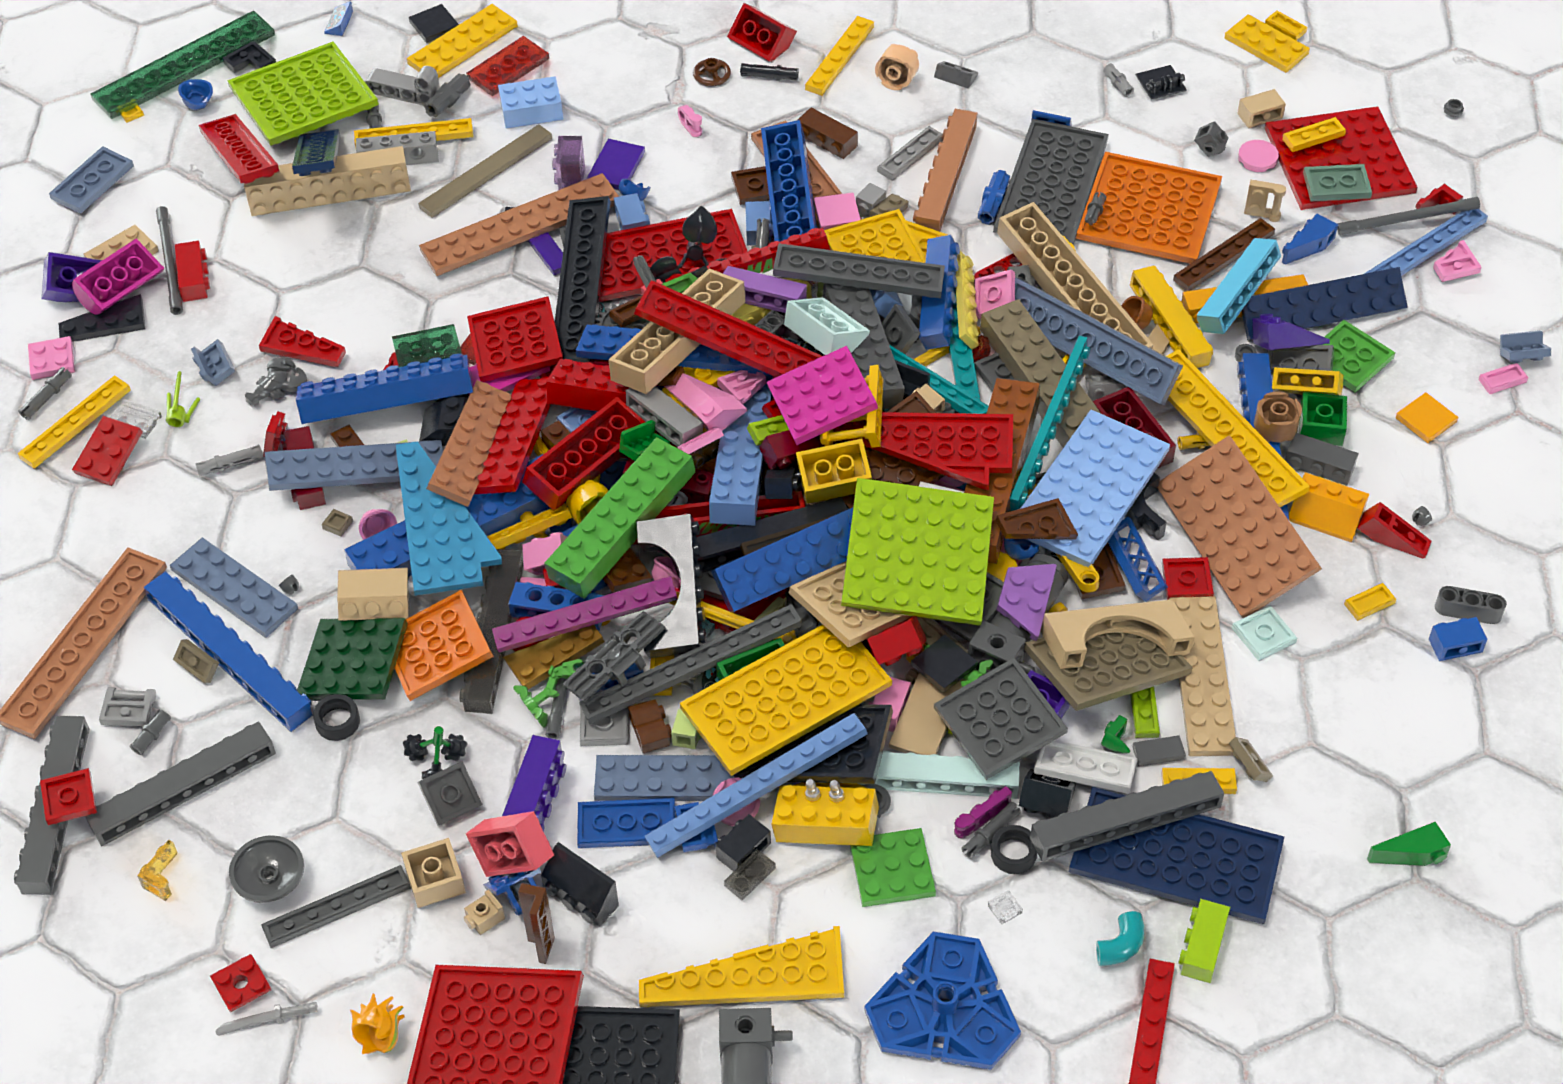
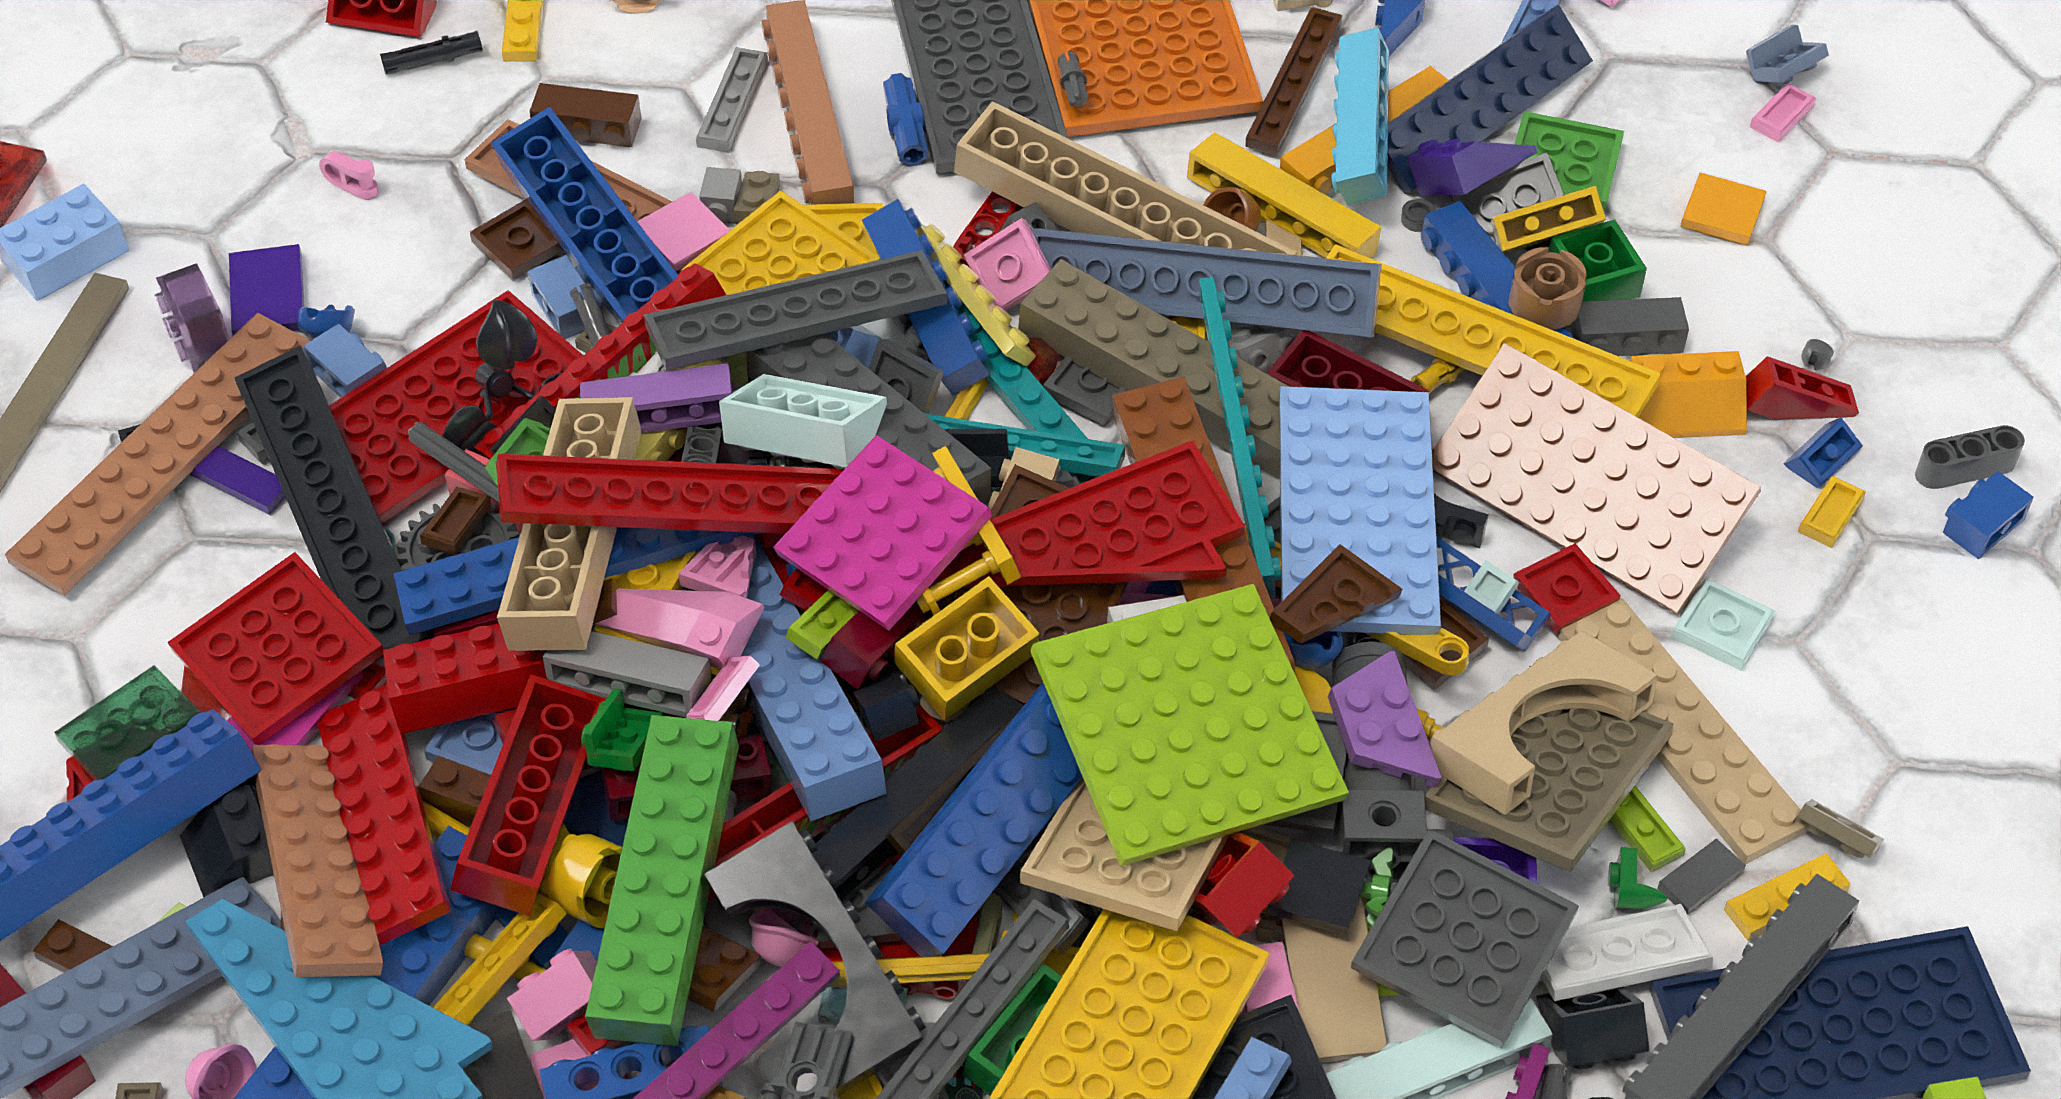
camera: 30 degrees left, 0 degrees up
(711, 69) = (334, 82): reddish brown piece -> none
(1141, 558) = (1492, 587): none -> light aqua plate
(1389, 570) = (1824, 452): none -> blue slope

